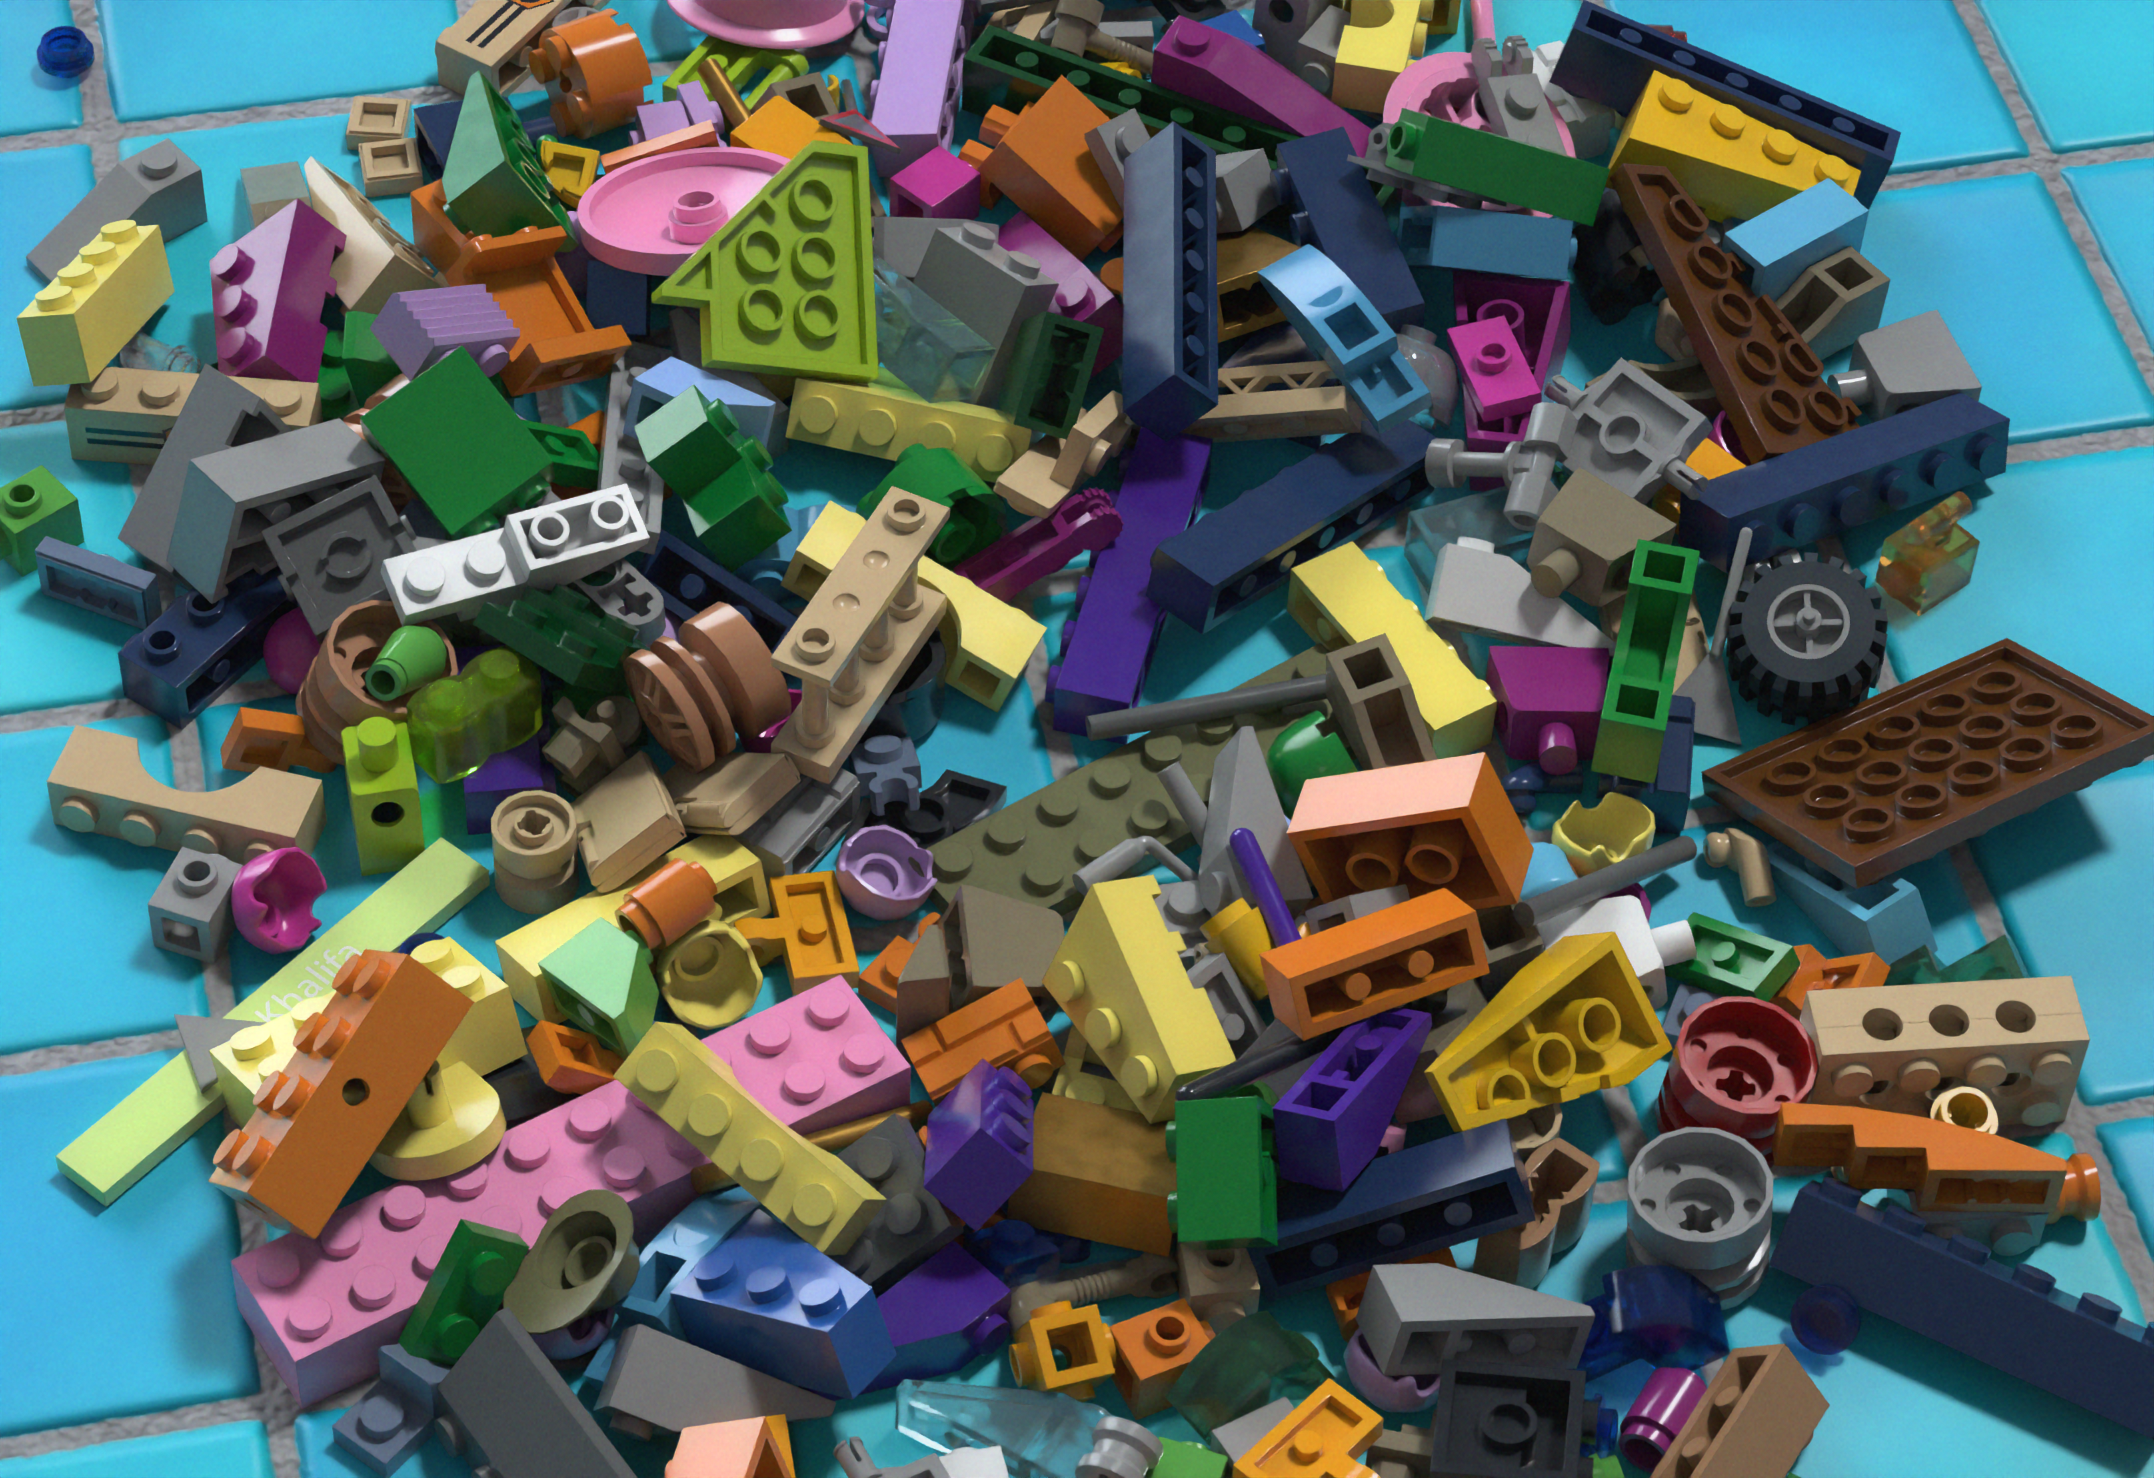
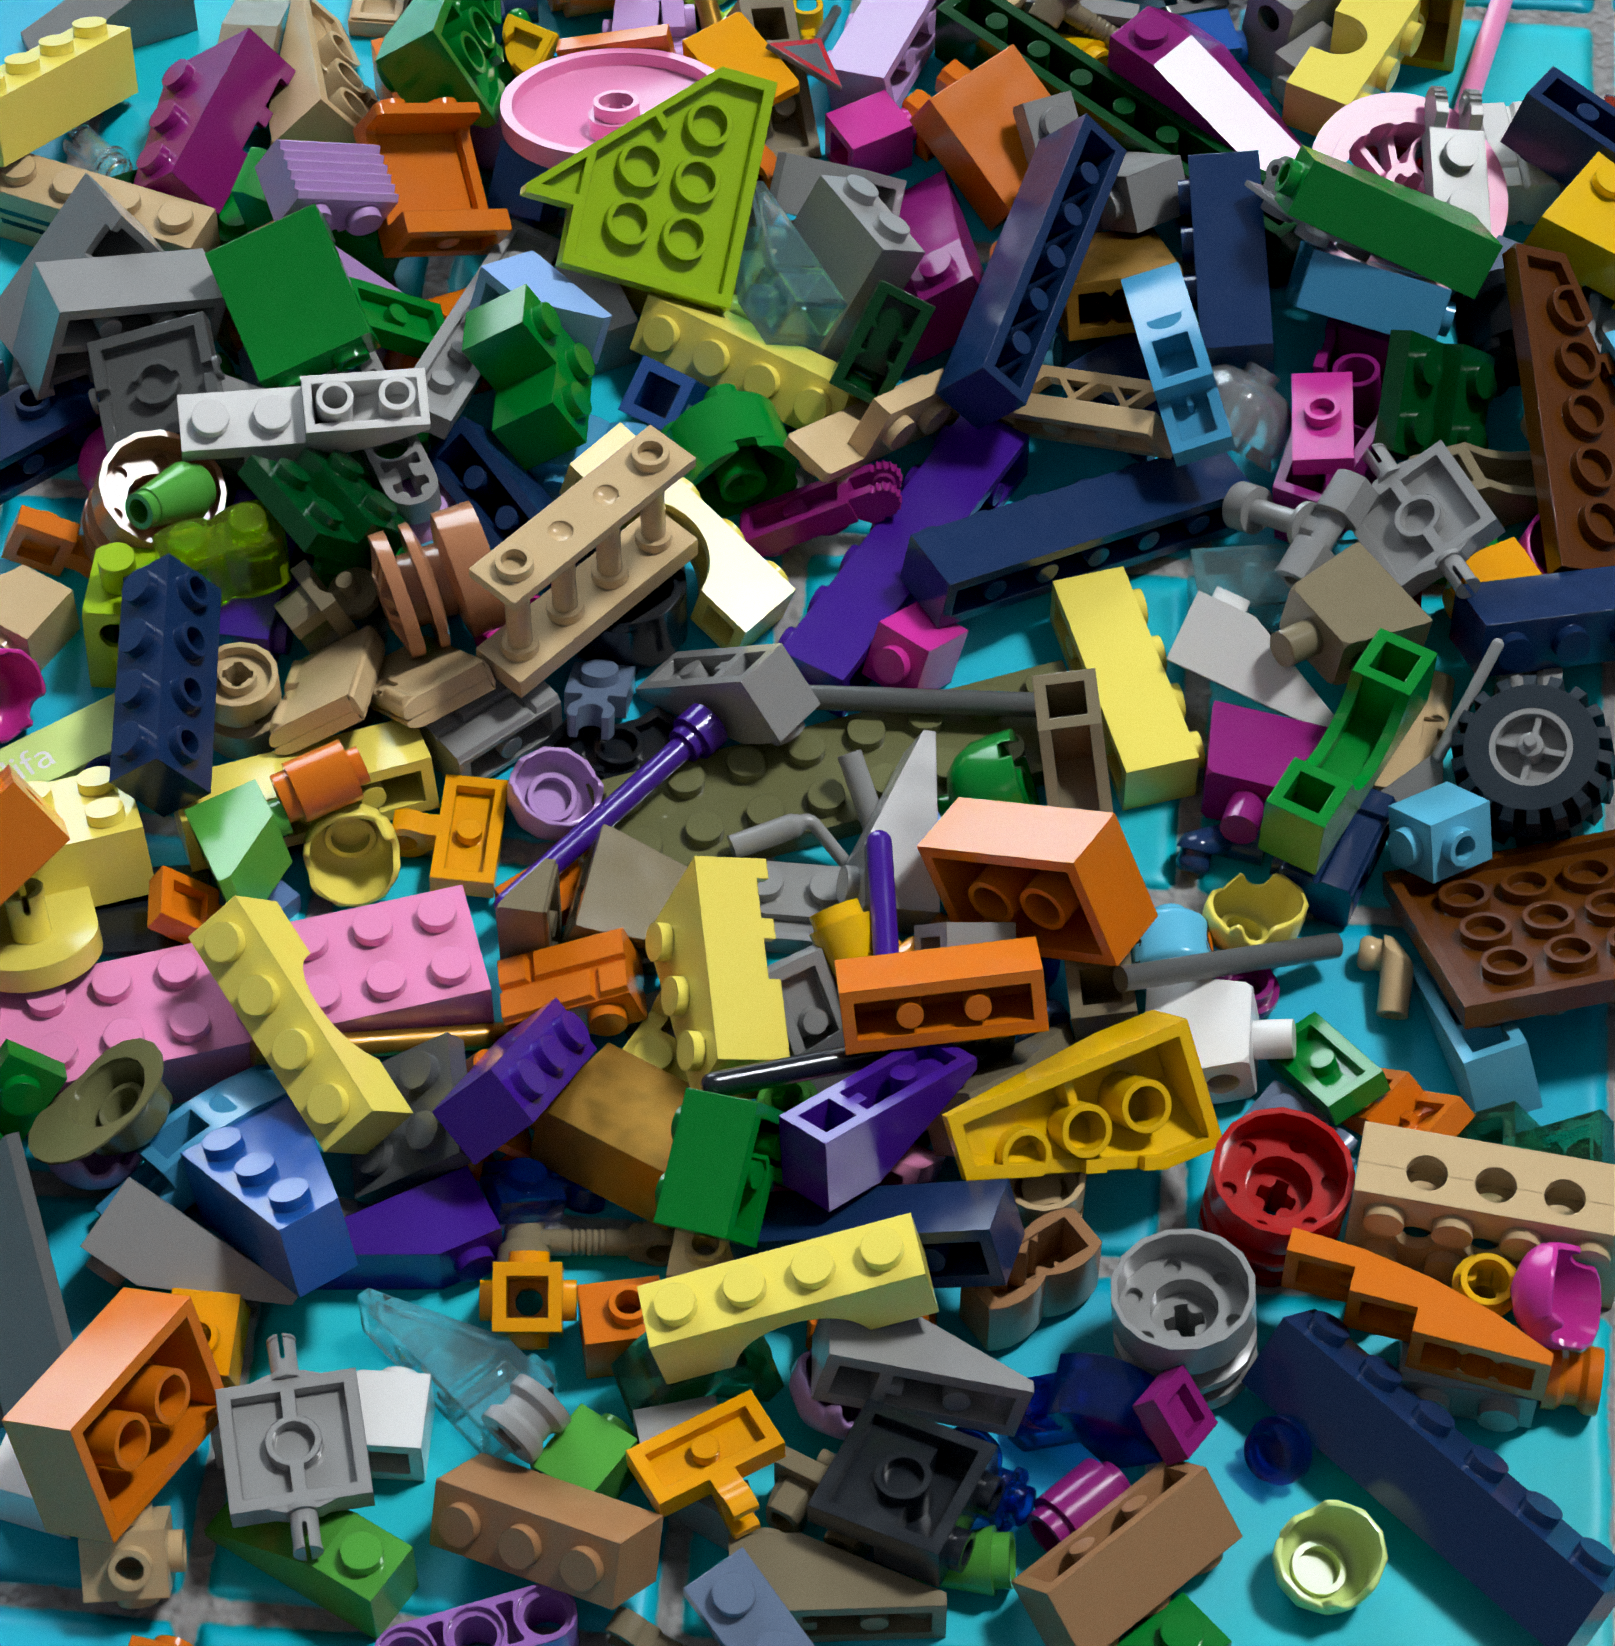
camera: 20 degrees right, 5 degrees up
(474, 846) = (166, 686): none -> dark blue brick
(841, 472) = (660, 393): none -> blue brick
(1004, 787) = (694, 735): none -> dark purple piece
(1026, 736) = (747, 687): none -> light grey slope
(1181, 662) = (913, 651): none -> dark pink brick
(1278, 1310) = (857, 1275): none -> light yellow arch
(1584, 322) = (1433, 395): none -> dark green plate
(1731, 1305) = (1174, 1414): none -> magenta plate
(1746, 721) = (1440, 832): none -> medium azure brick
(1917, 1403) = (1329, 1557): none -> yellowish green hair
(2037, 1109) = (1557, 1297): none -> dark pink hair

